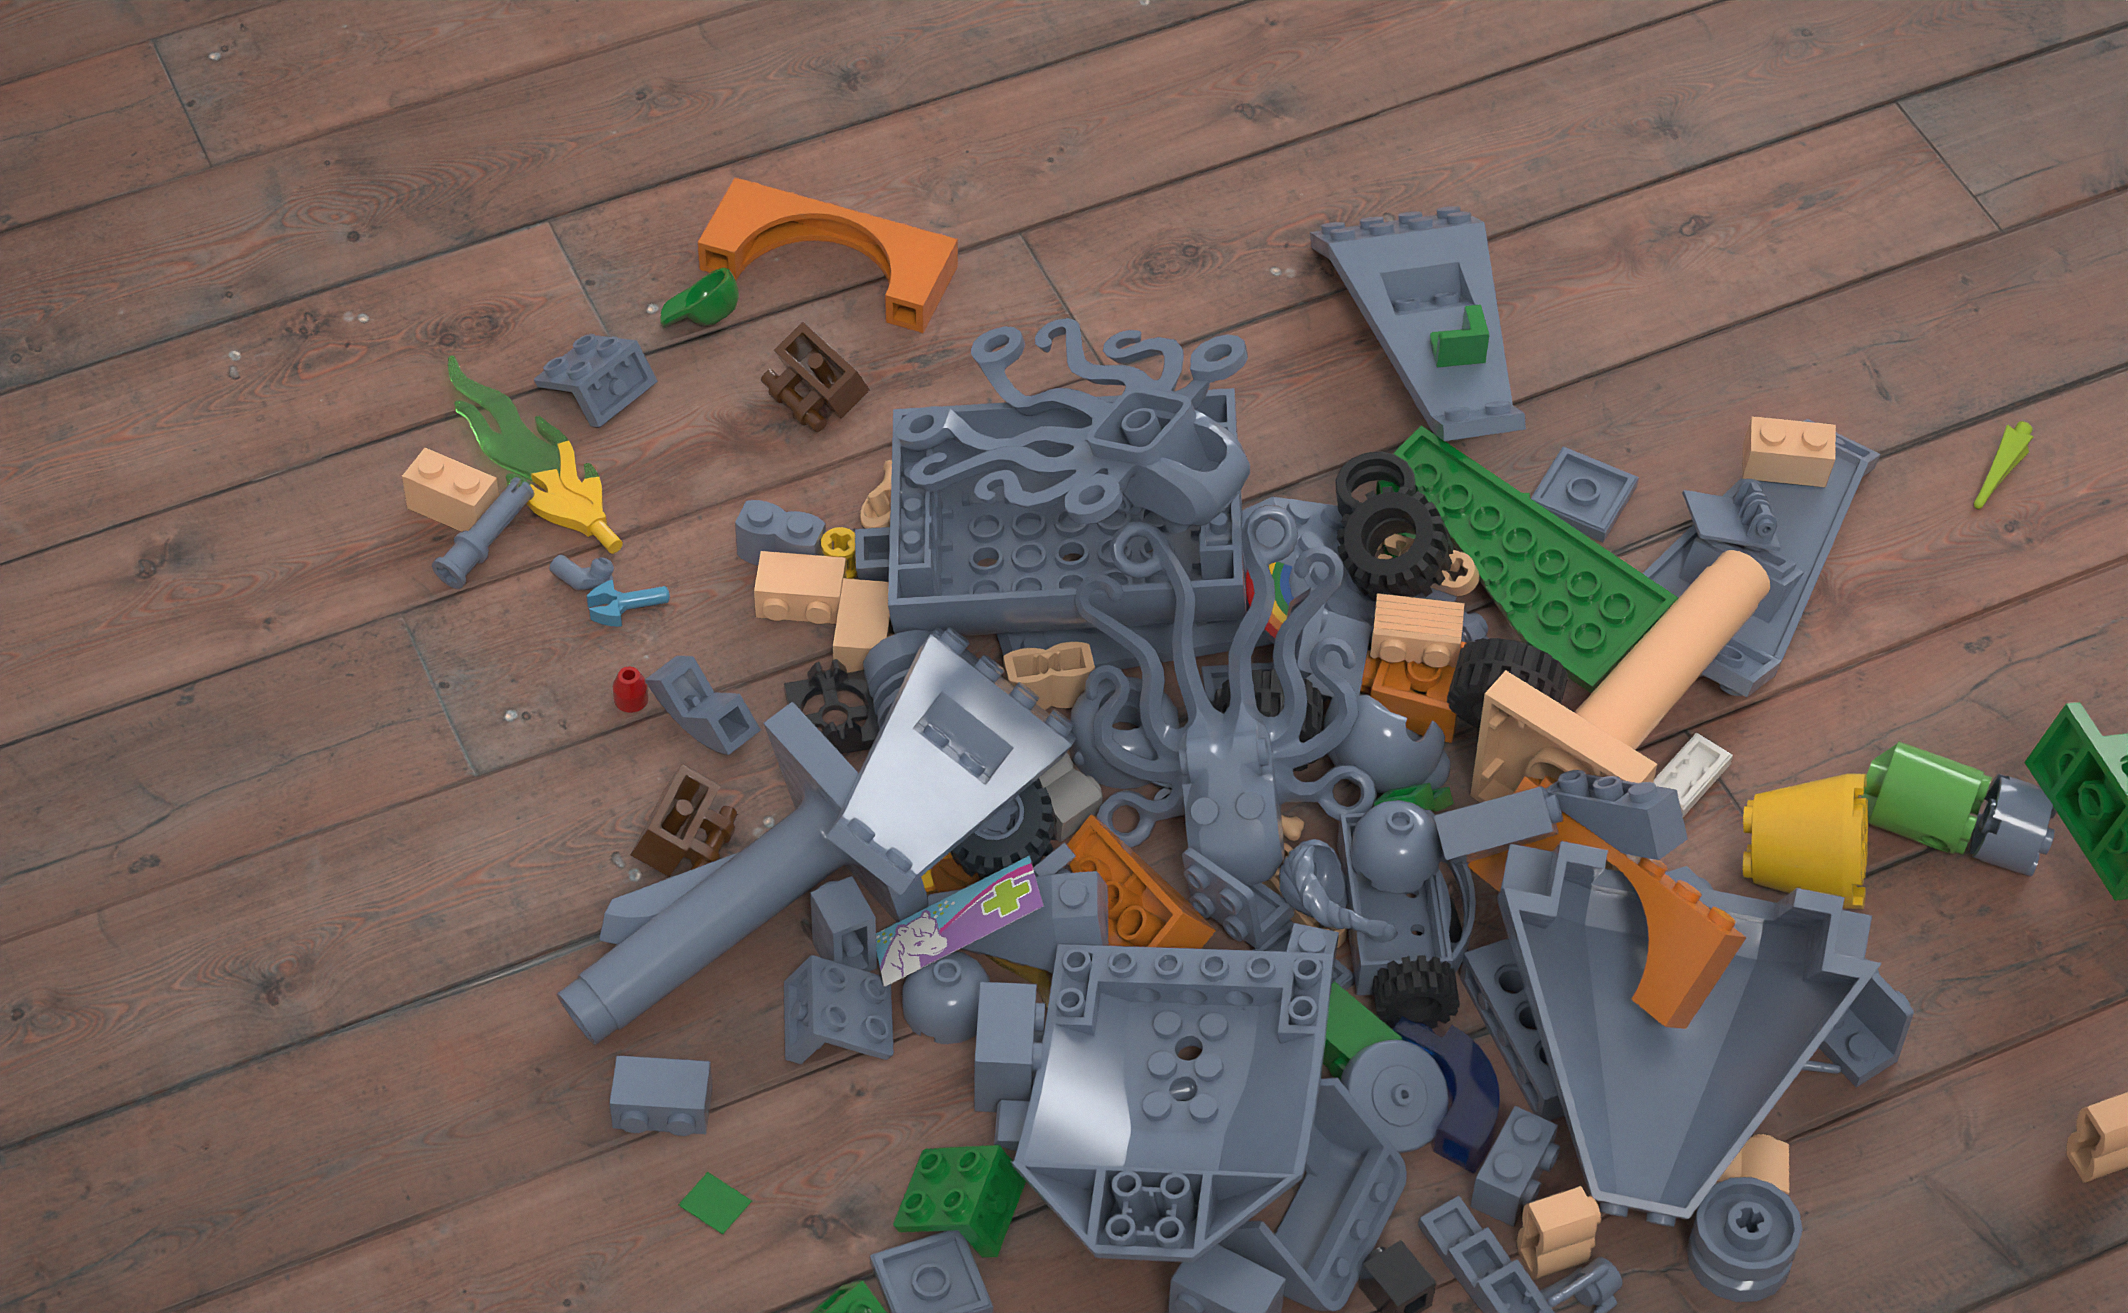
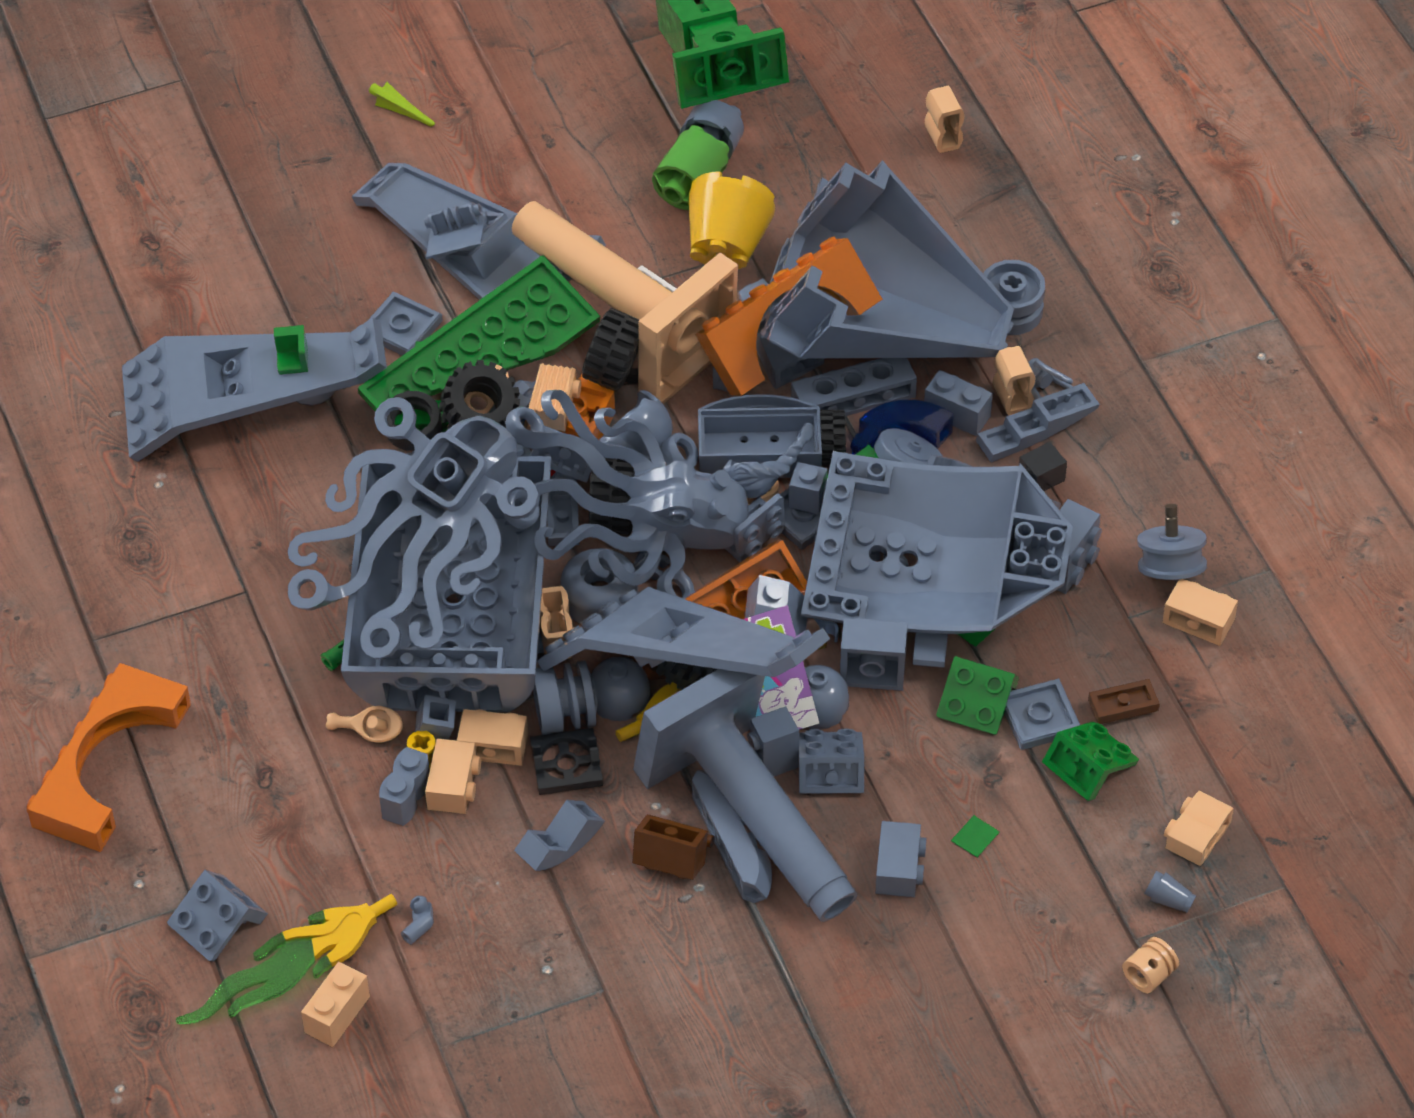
camera: 85 degrees left, 0 degrees up
(472, 545) = (389, 989): sand blue pin -> none
(620, 602) = (447, 894): dark azure bar -> none
(630, 690) = (536, 886): red hose -> none
(705, 301) = (148, 849): green cap -> none
(821, 371) = (243, 755): reddish brown brick -> none
(1396, 846) = (734, 422): sand blue cylinder -> none
(1420, 795) = (686, 420): green slope -> none
(1494, 824) = (744, 353): sand blue slope -> none
(1625, 814) = (752, 277): sand blue slope -> none
(1789, 451) = (402, 196): light nougat brick -> none

